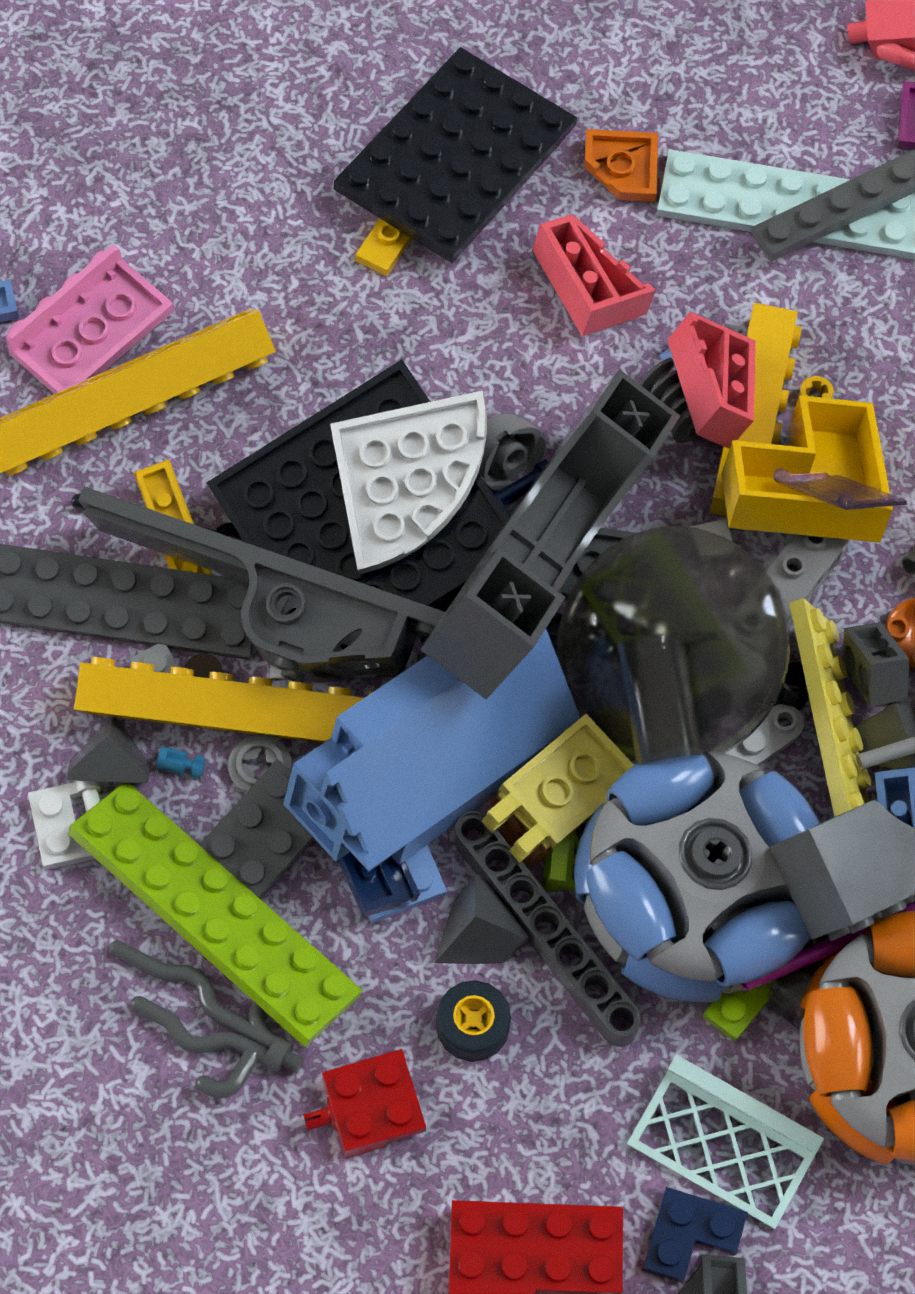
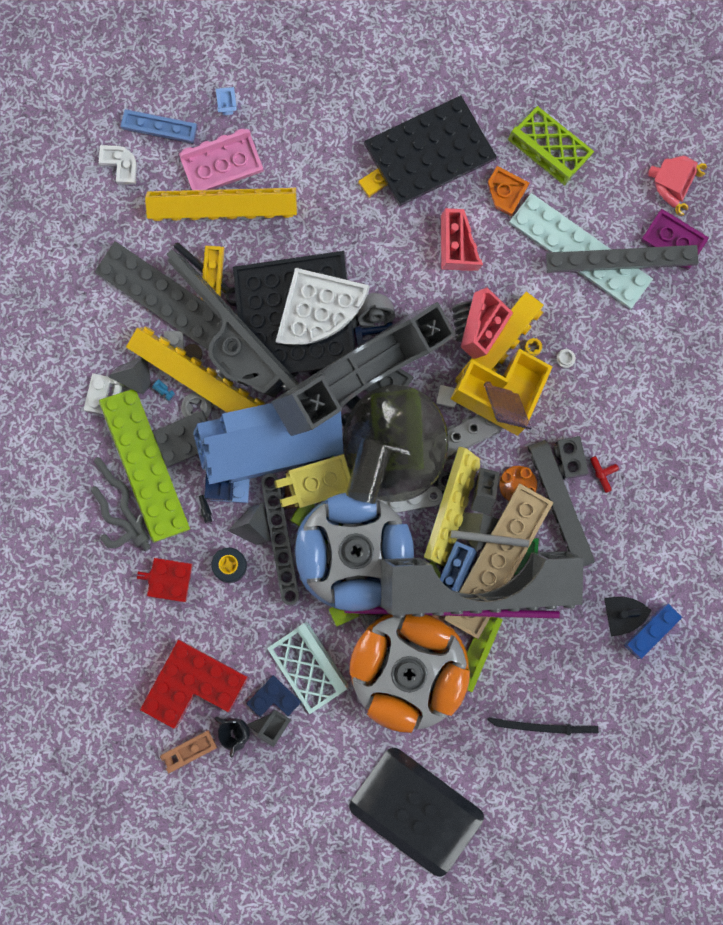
camera: 30 degrees right, 15 degrees up
(45, 220) = (226, 100): none -> light blue bracket
(373, 943) = (205, 510): none -> black piece
(653, 82) = (553, 165): none -> lime fence
(882, 387) = (565, 358): none -> white plate

